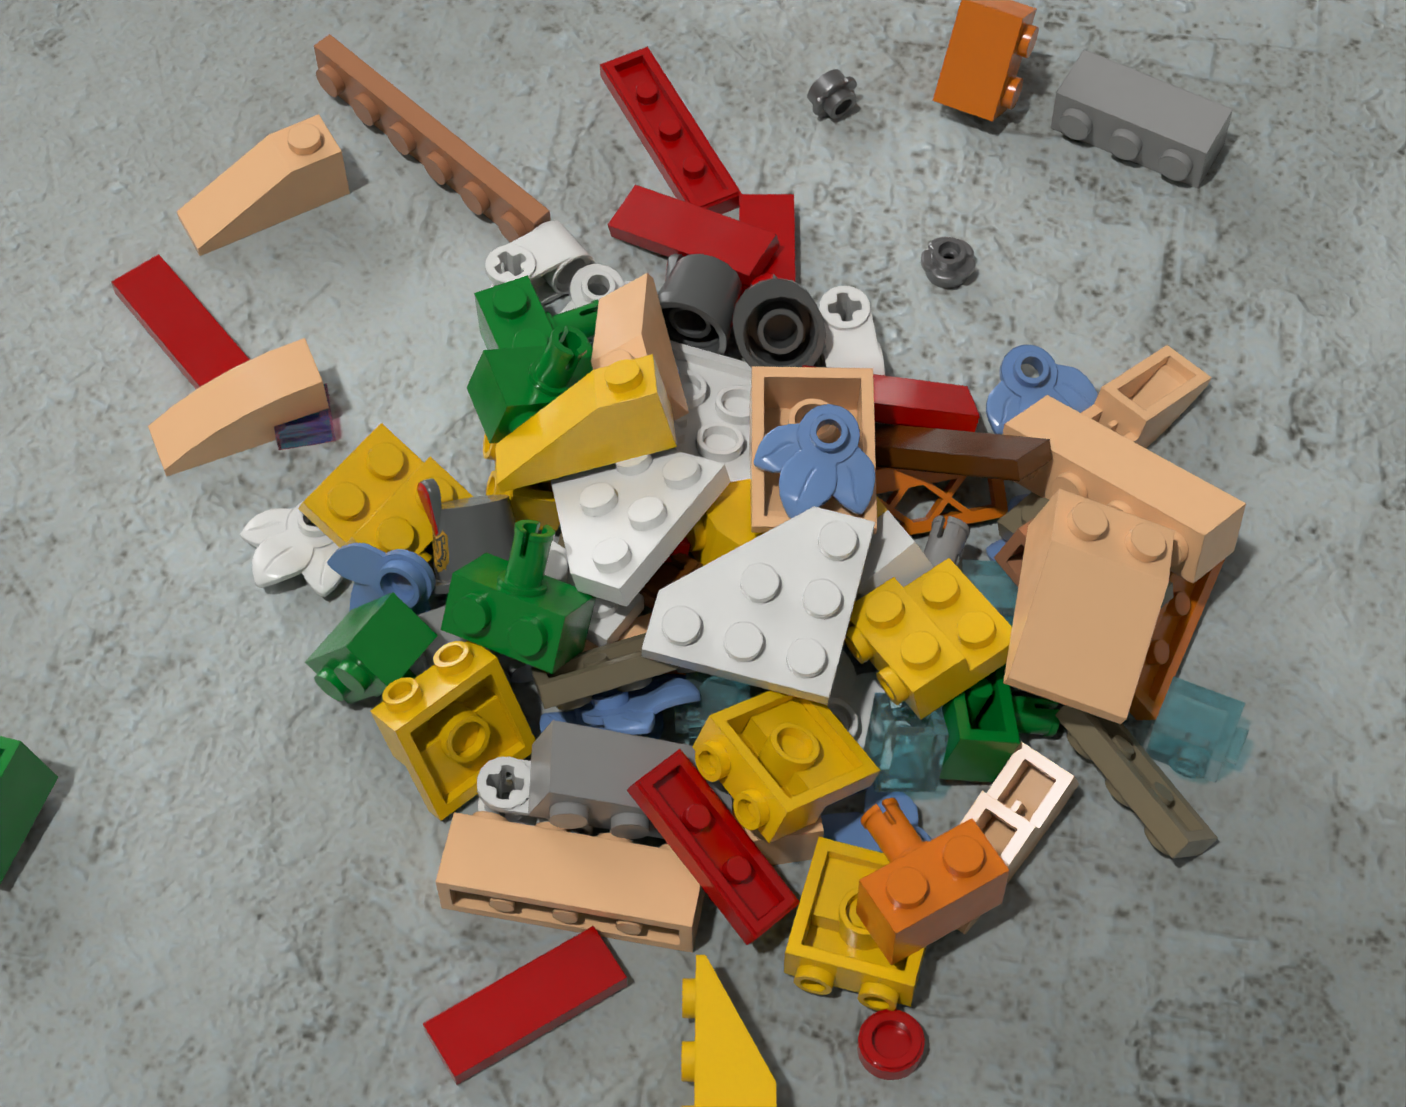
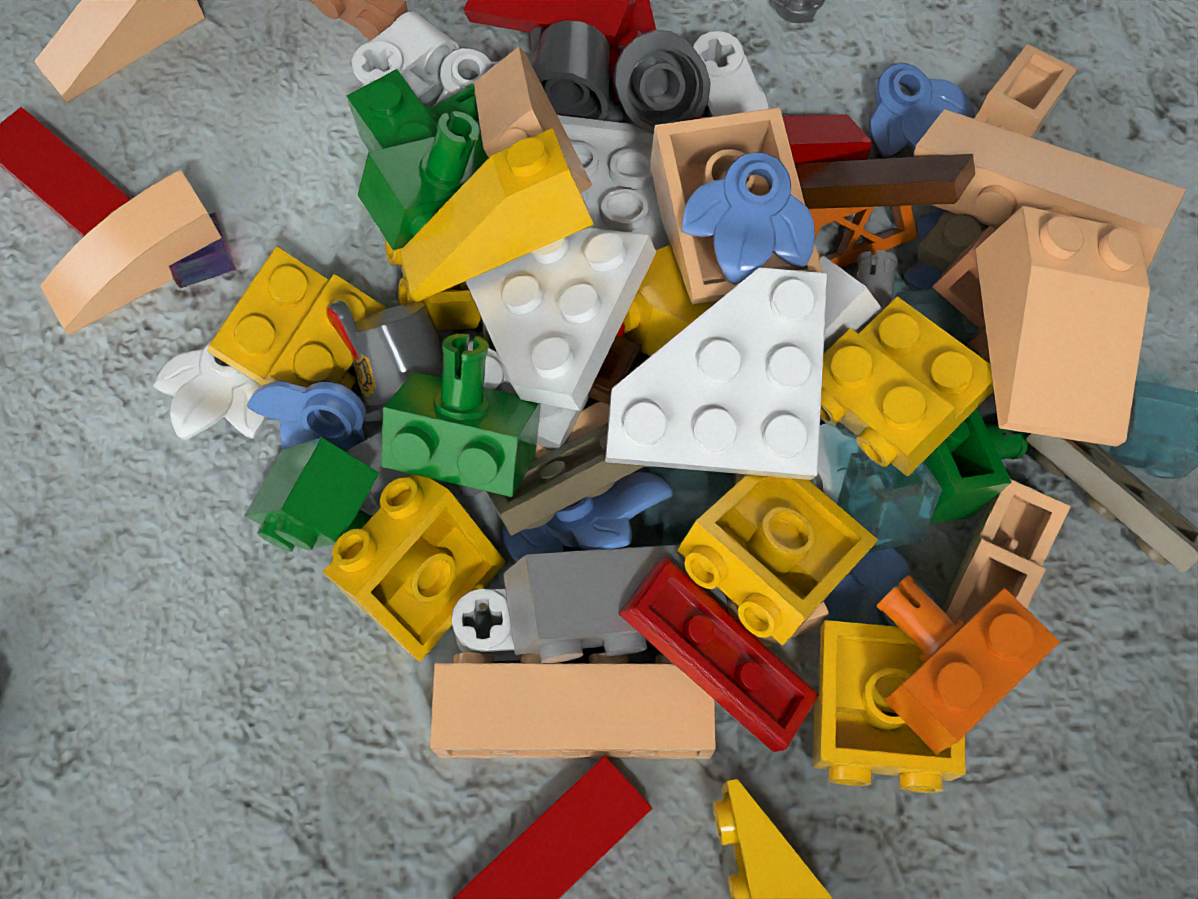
camera: 10 degrees left, 10 degrees up
(890, 1044) = (940, 827): red tile -> none

